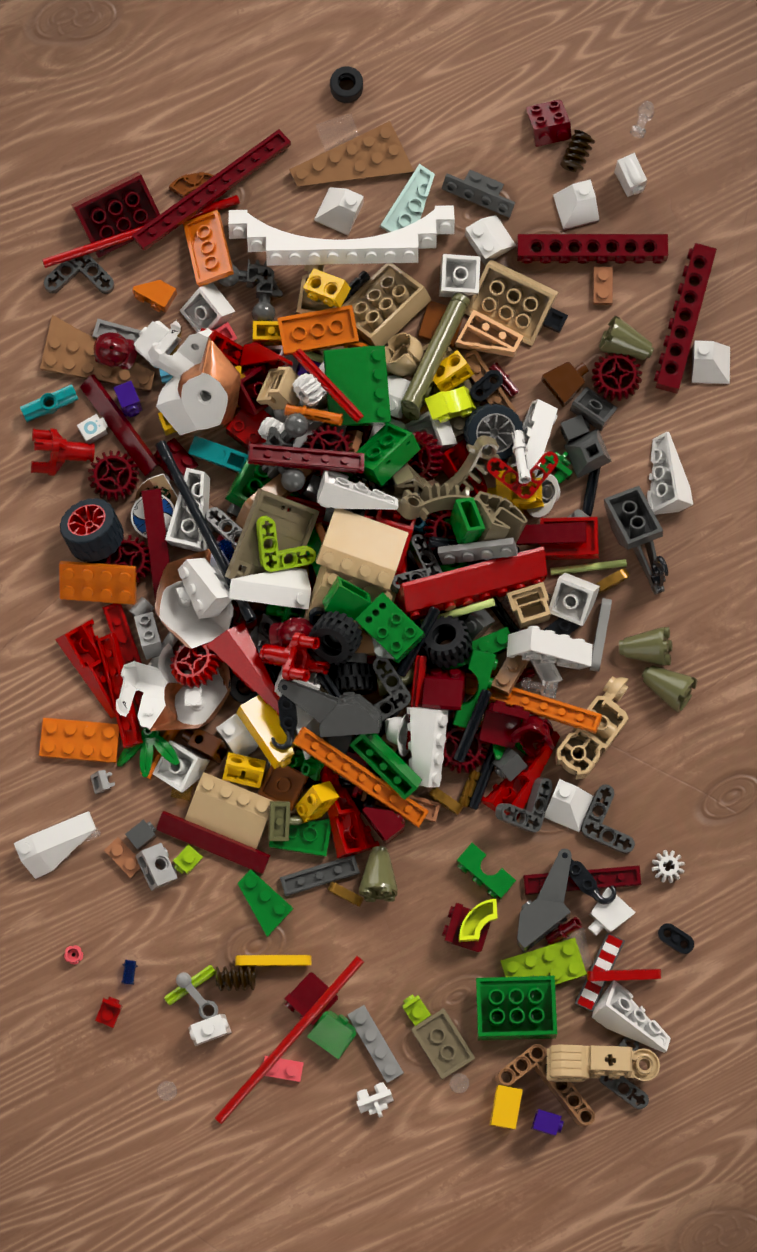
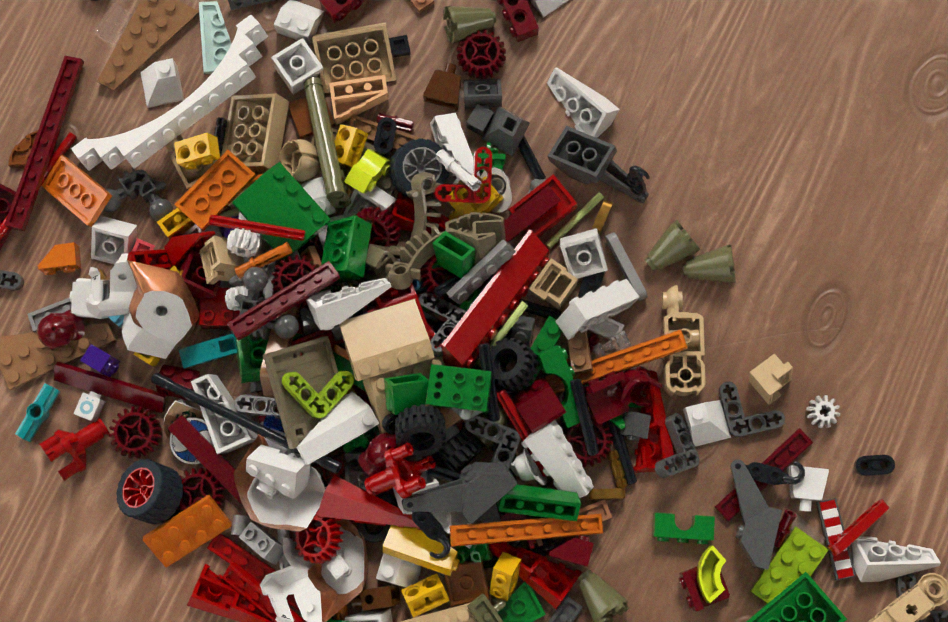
camera: 30 degrees left, 0 degrees up
(646, 807) = (770, 378): none -> tan plate

